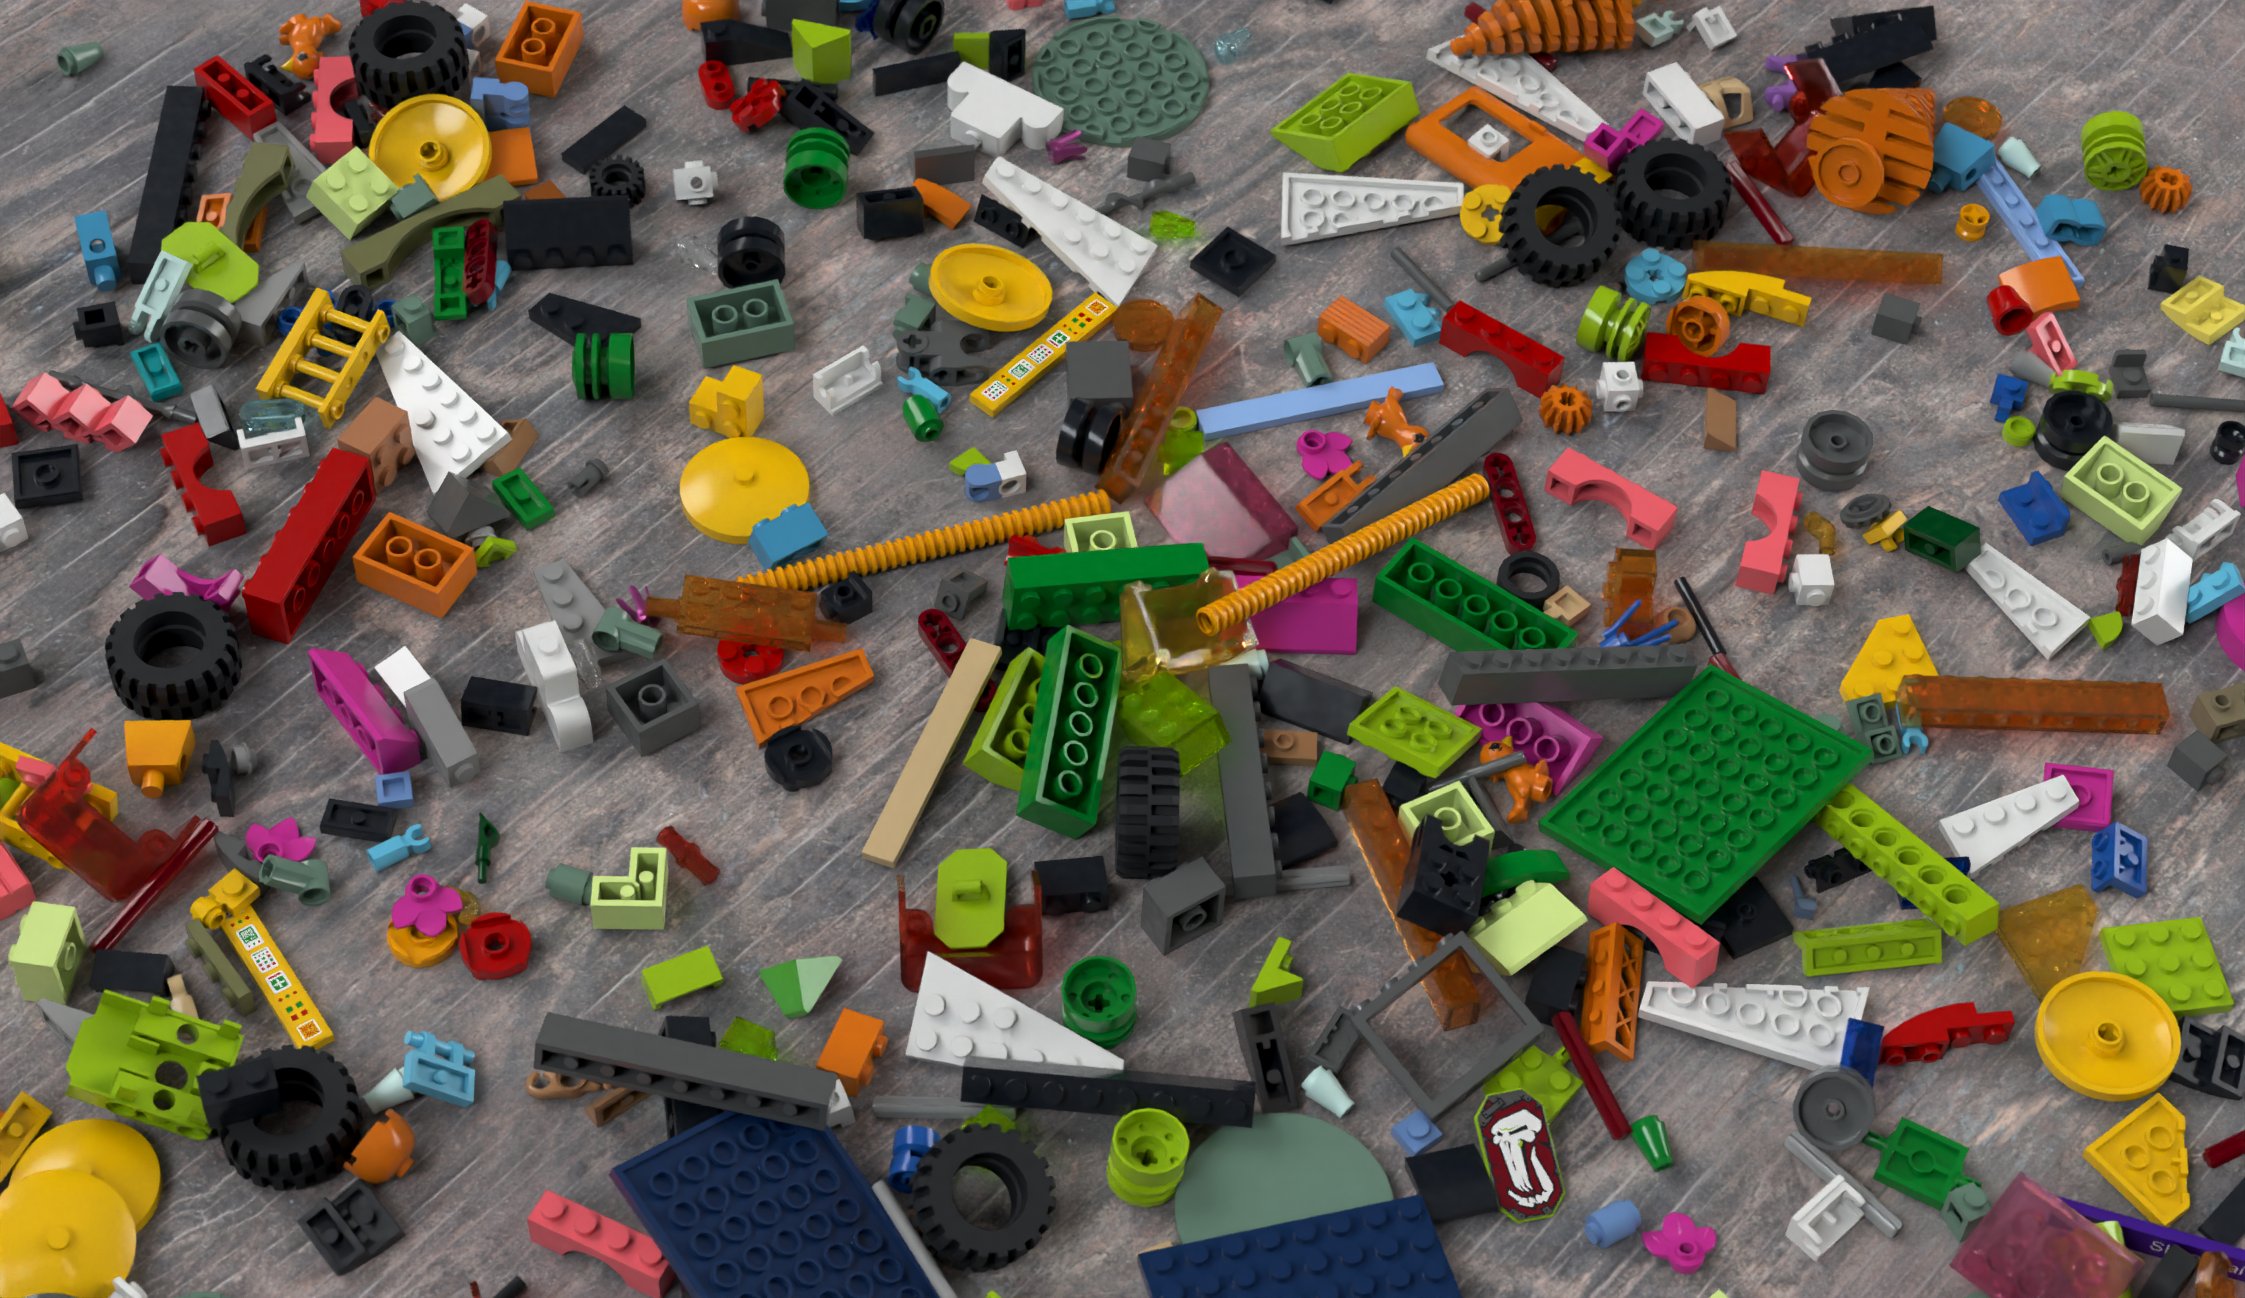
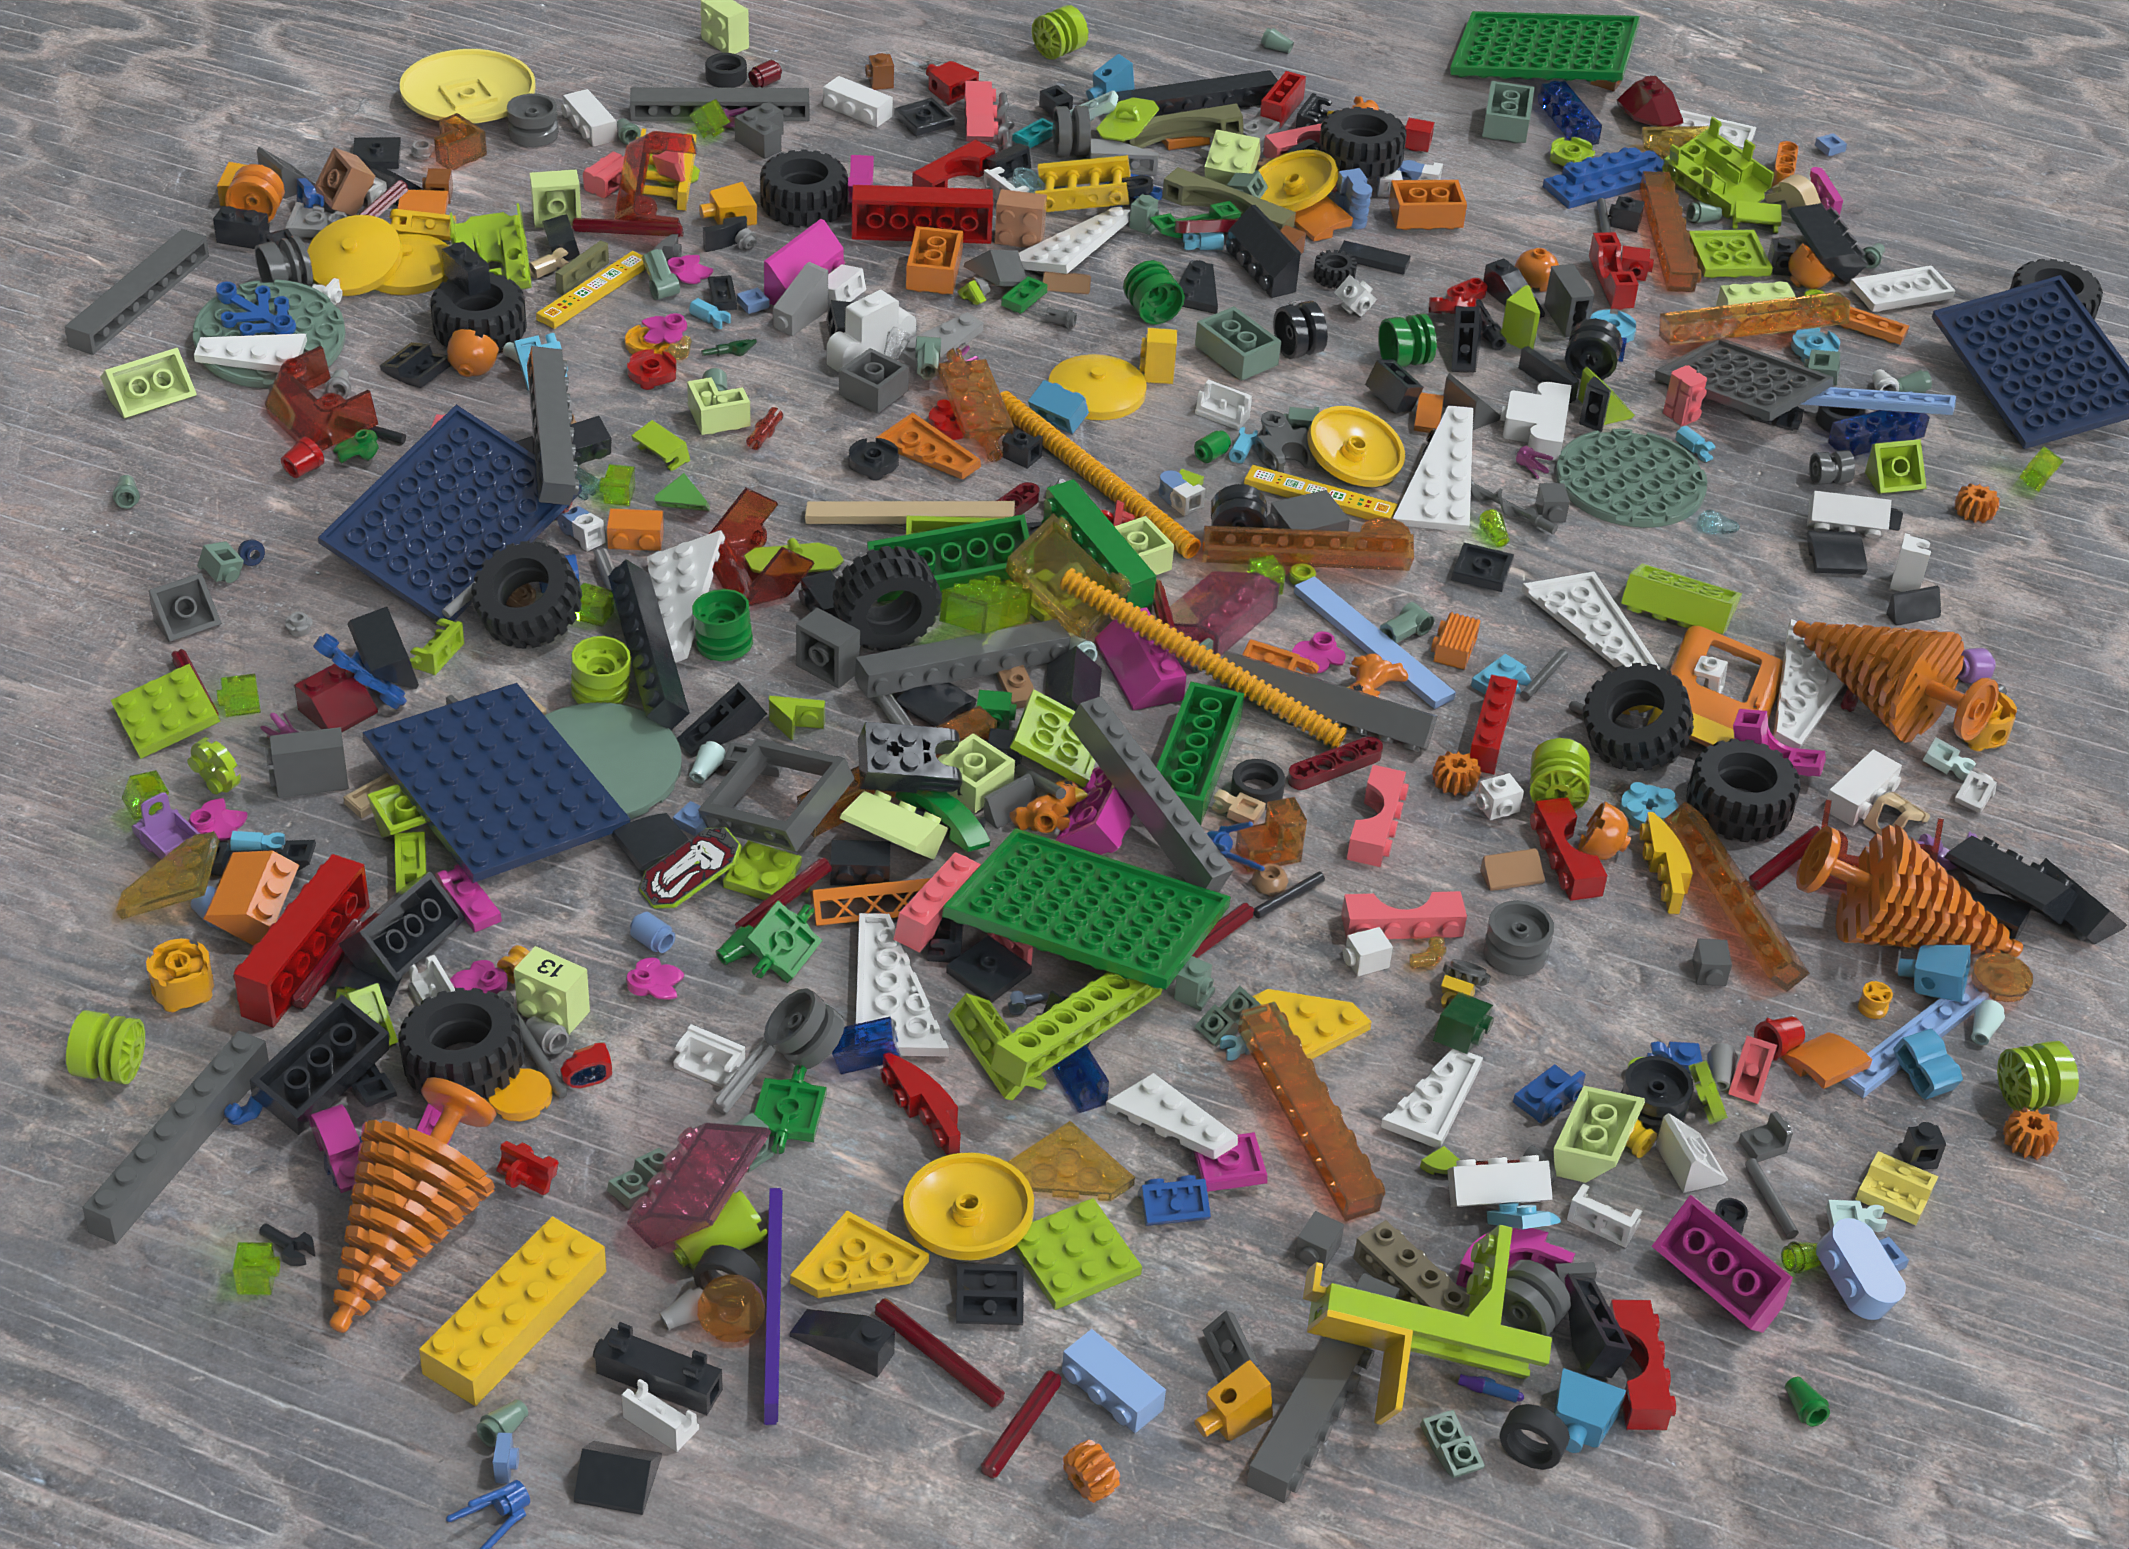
camera: 70 degrees right, 10 degrees down
(230, 894) = (631, 257): yellow plate -> none
(1671, 1095) = (782, 941): none -> plate

